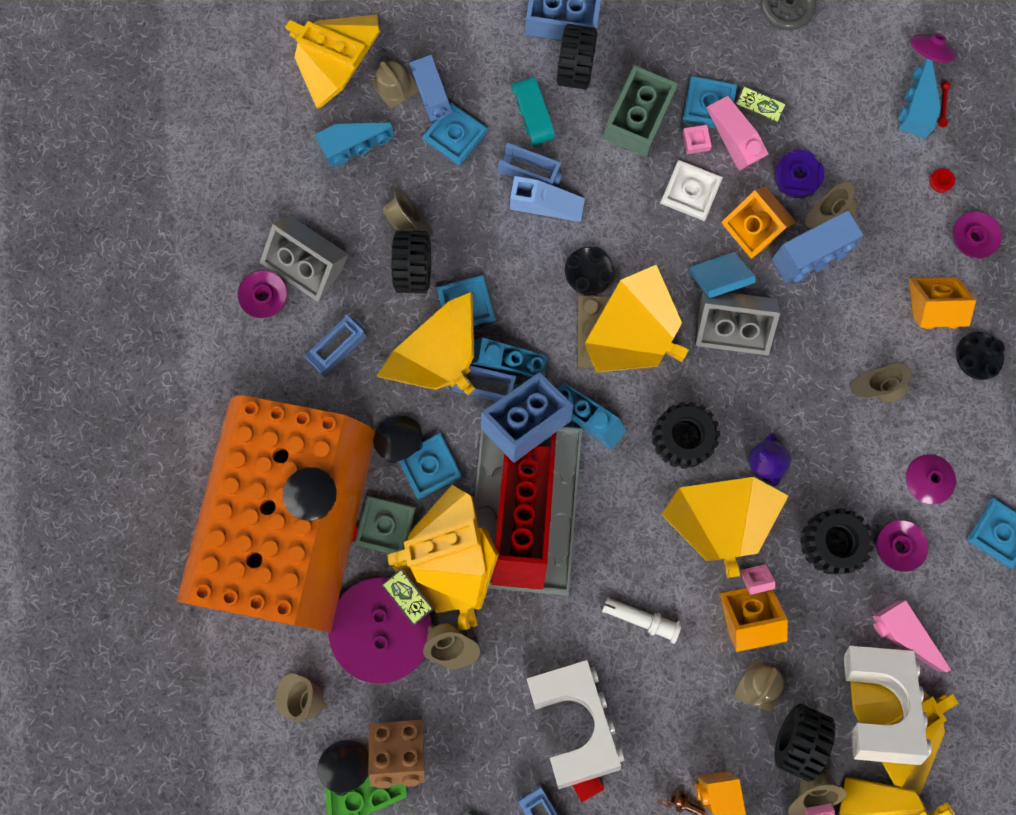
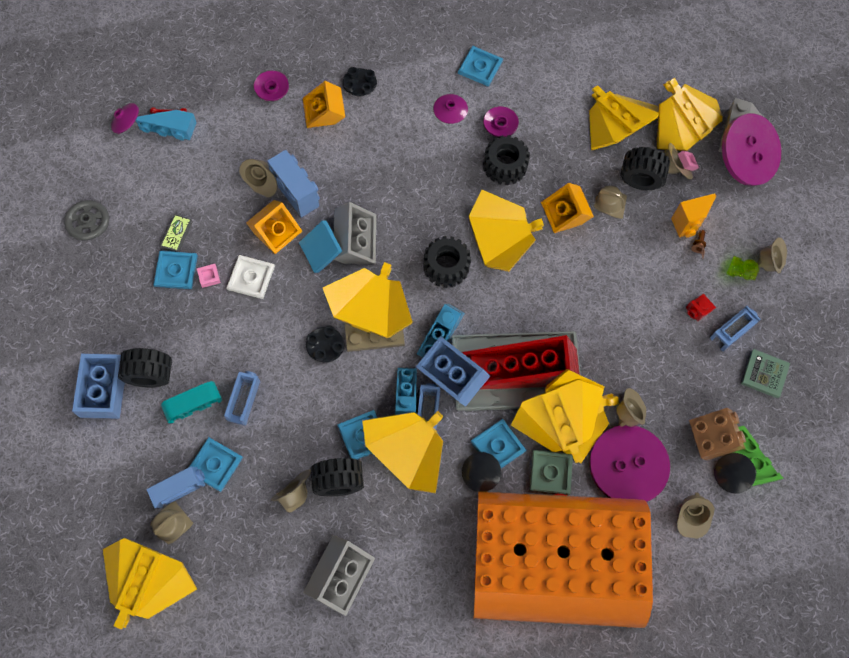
camera: 100 degrees left, 10 degrees down
(257, 284) = (376, 593): magenta dish -> none
(309, 494) = (549, 516): black dish -> none
(336, 345) = (412, 533): medium blue window -> none
(352, 139) = (228, 555): dark azure slope -> none
(407, 597) = (602, 445): tile -> none
(544, 199) = (270, 383): light blue slope -> none
(599, 754) = (683, 292): white arch -> none
(640, 111) = (188, 317): sand green brick -> none
(654, 623) = (584, 272): white pin -> none
(737, 133) = (203, 245): bright pink slope -> none
(758, 579) = (540, 207): bright pink plate -> none
(770, 460) = (454, 206): dark purple hat -> none
(789, 183) = (235, 211): dark purple plate -> none
(884, 383) = (388, 138): dark tan piece -> none
(899, 673) = (587, 118): white arch -> none
(904, 629) = (555, 119): bright pink slope -> none
(941, 180) = (229, 110): red tile -> none

